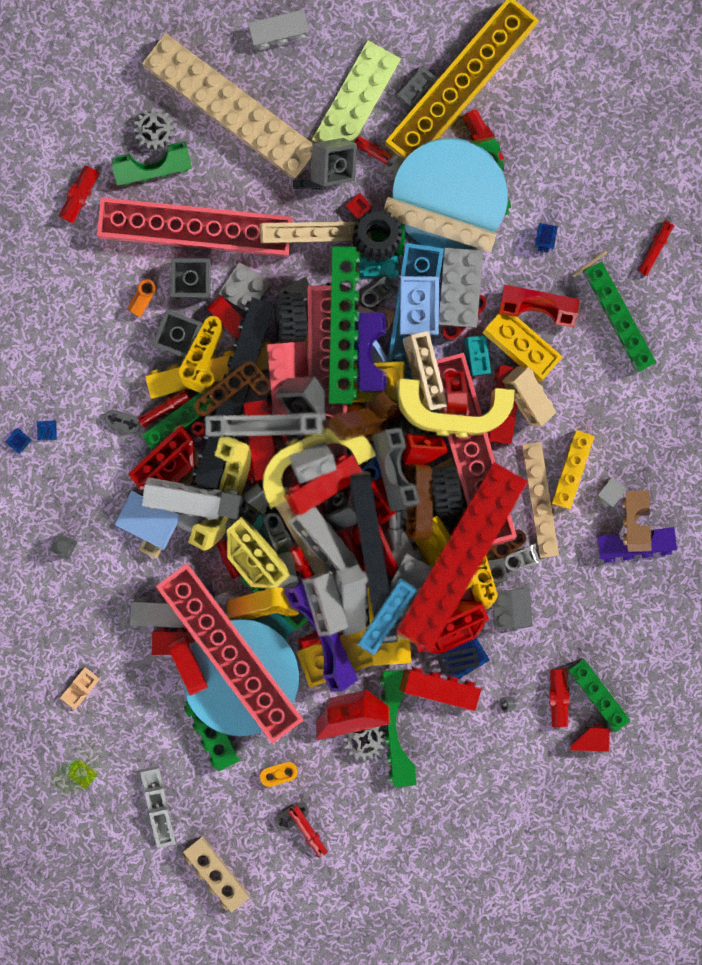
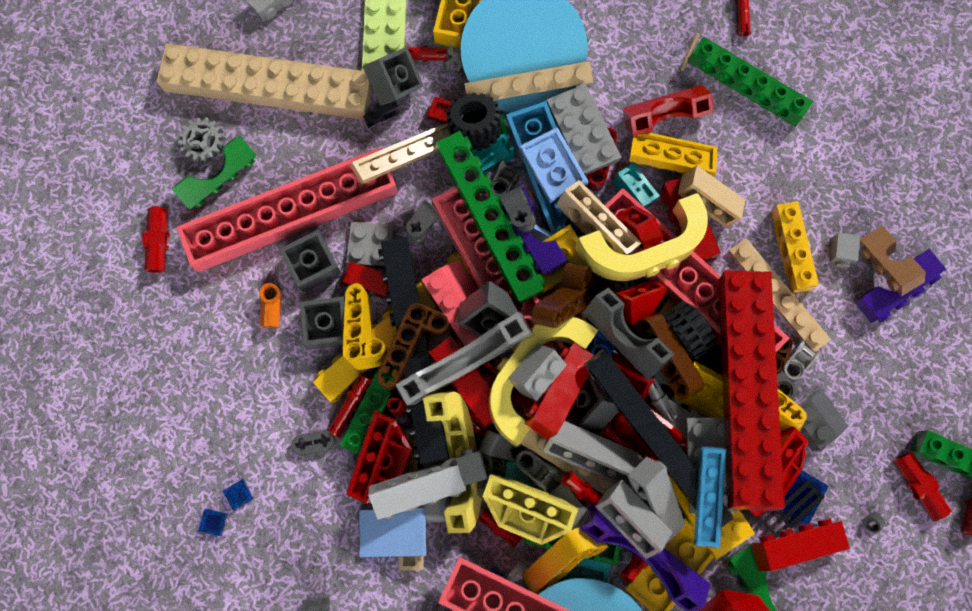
camera: 25 degrees left, 10 degrees down
(290, 317) = (431, 241): black tyre -> none
(367, 329) = (518, 206): none -> dark grey piece
(545, 237) = (635, 46): clear blue brick -> none

